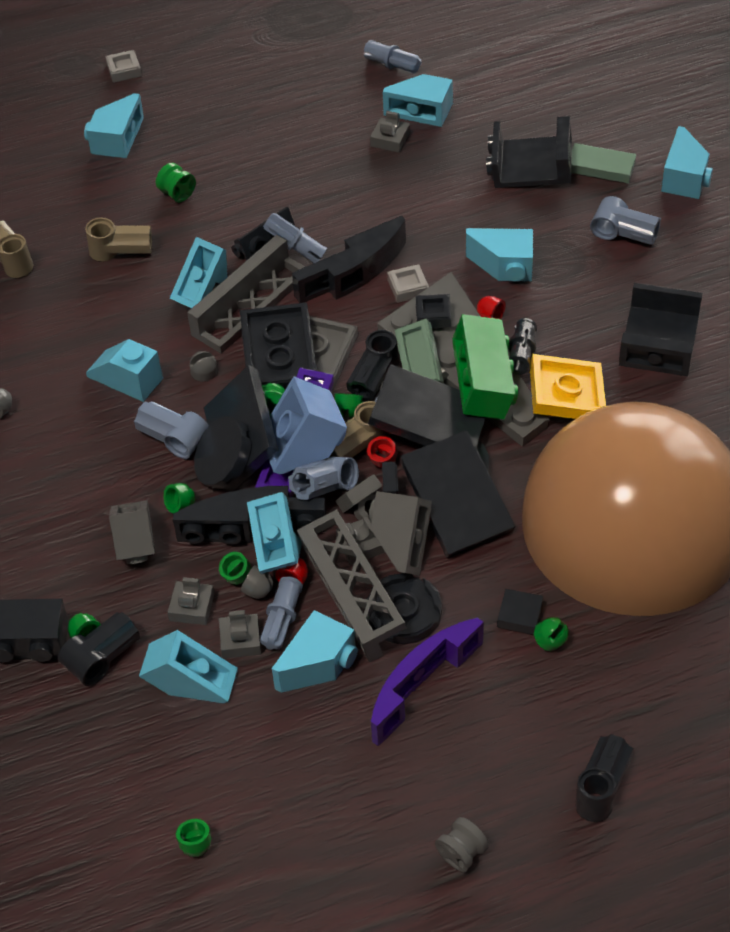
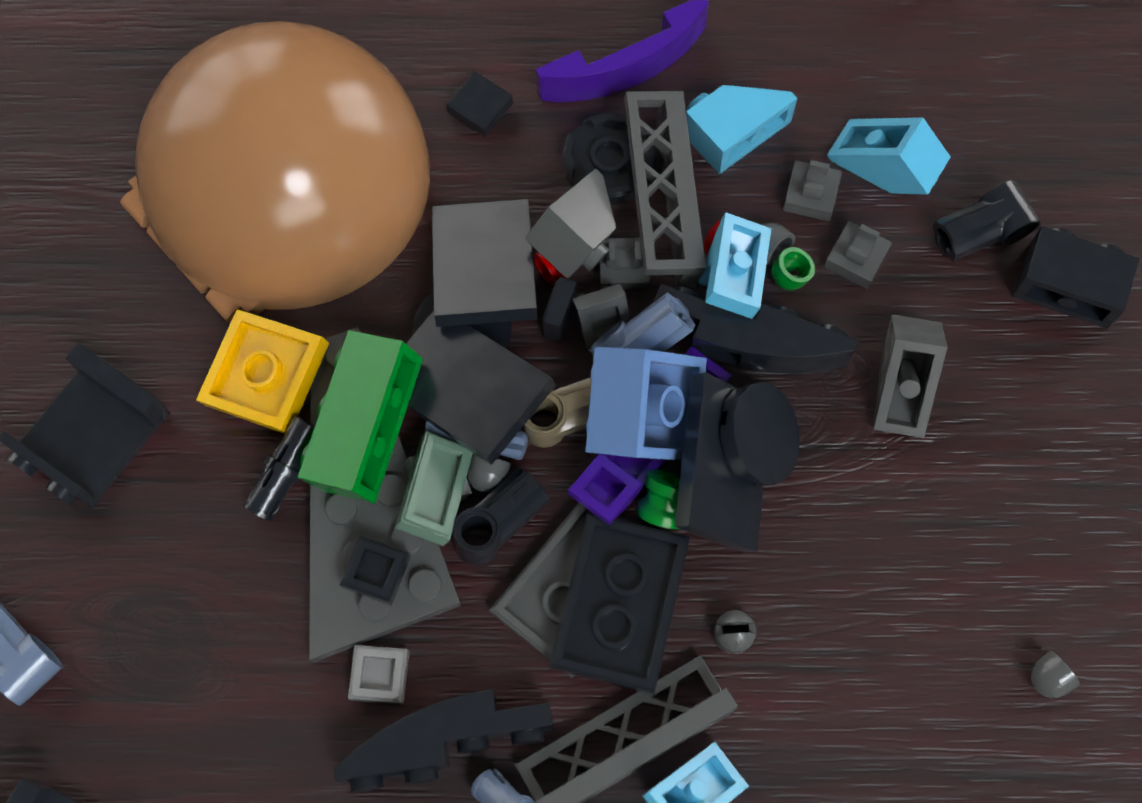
camera: 160 degrees left, 20 degrees up
(82, 625) = (1000, 259): green hinge -> none
(129, 369) = (855, 661): medium azure slope -> none
(177, 431) = (804, 509): sand blue piece -> none
(178, 497) = (834, 406): green hinge -> none
(281, 613) = (758, 192): sand blue axle -> none
(347, 401) = (548, 466): green hinge -> none
(385, 446) = (552, 364): red hinge -> none
(491, 307) = (289, 562): red hinge -> none
(502, 252) = (214, 655): medium azure slope -> none
(546, 628) = (460, 57): green hinge -> none

